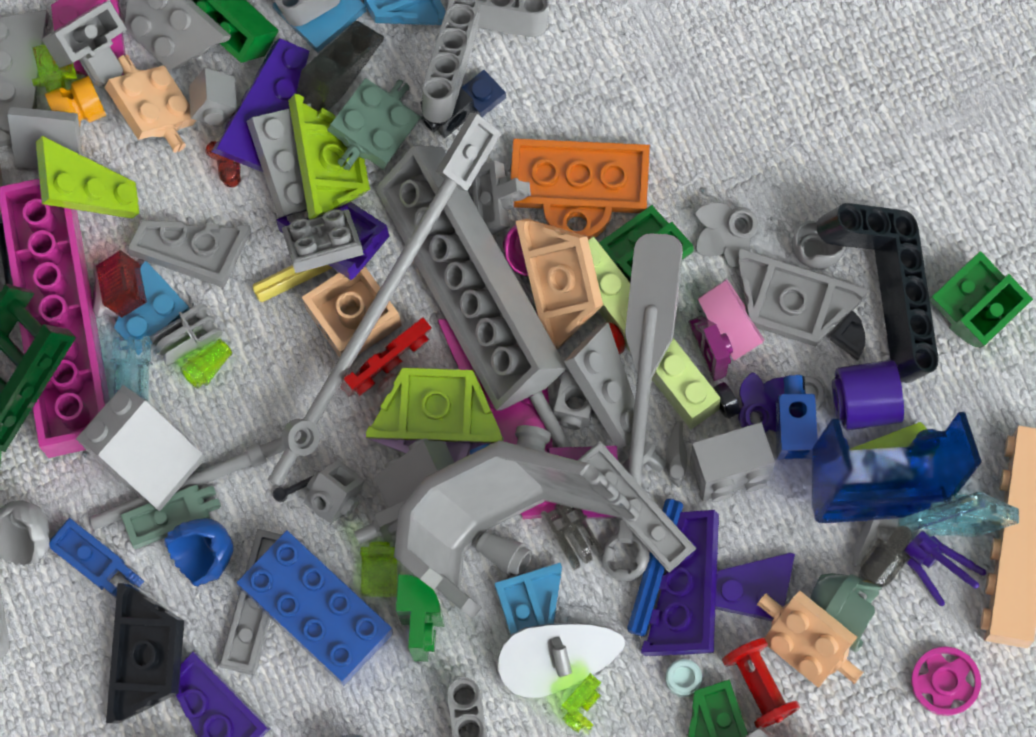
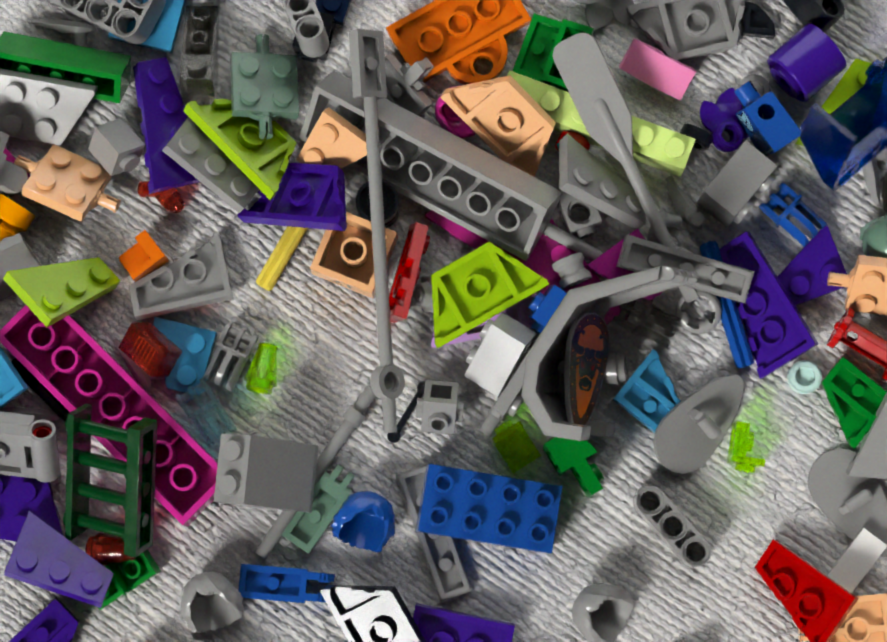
camera: 35 degrees left, 10 degrees up
(173, 205) = (143, 257): none -> orange panel
(322, 240) = (296, 212): light grey tile -> none
(398, 204) = (333, 142): none -> light nougat wing
(411, 289) = (390, 203): none -> black wheel
(482, 533) = (584, 366): none -> shield
(713, 346) = (660, 100): magenta wing -> none
(768, 520) = (795, 214): none -> blue arm

